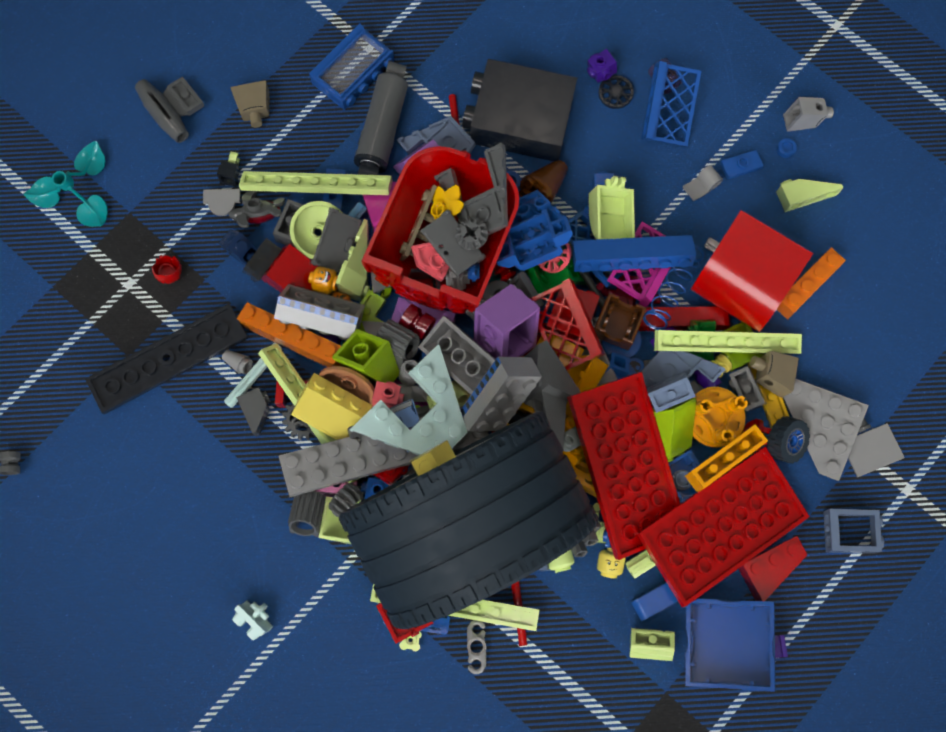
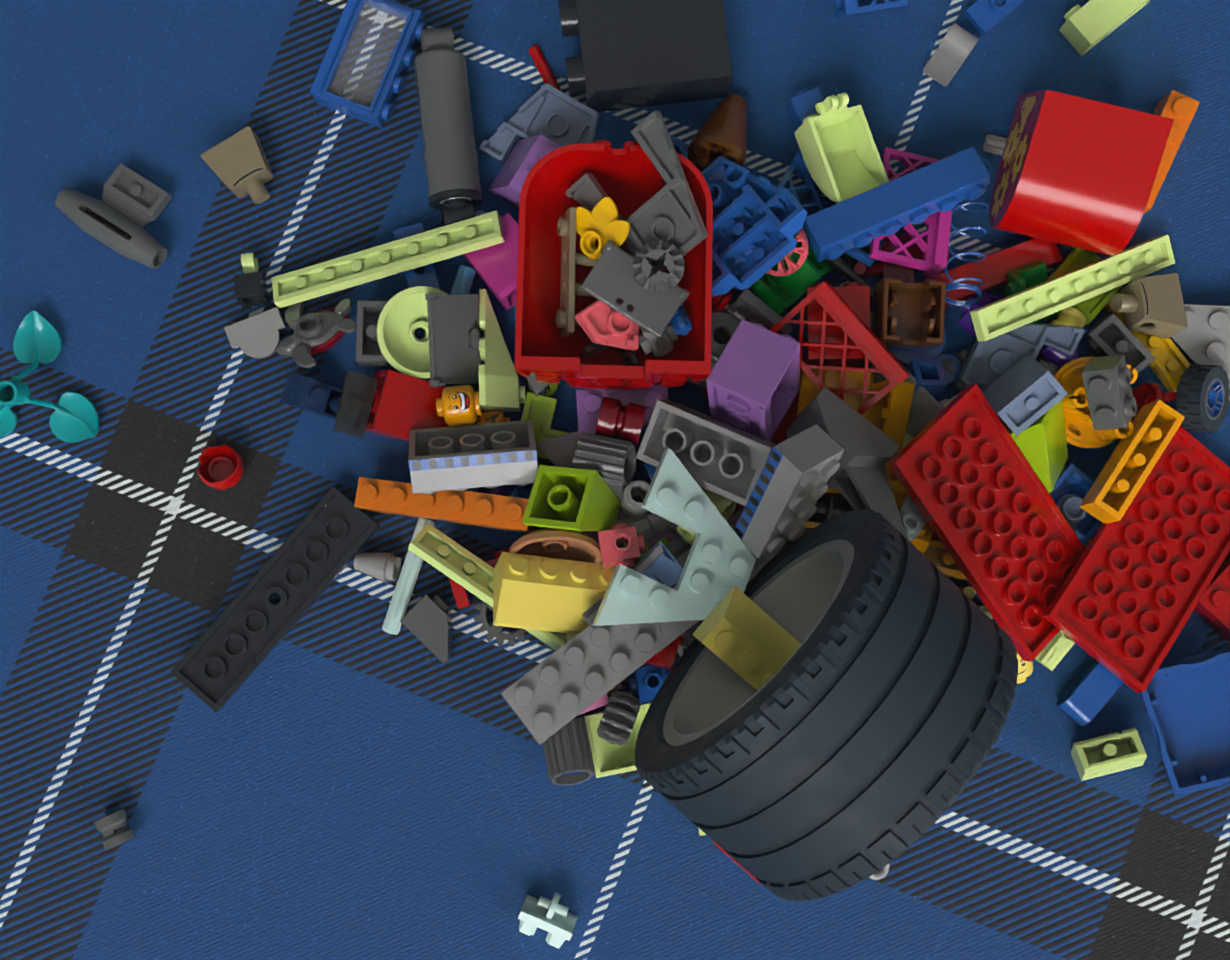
camera: 15 degrees left, 10 degrees up
(724, 408) = (1109, 392): none -> dark grey brick

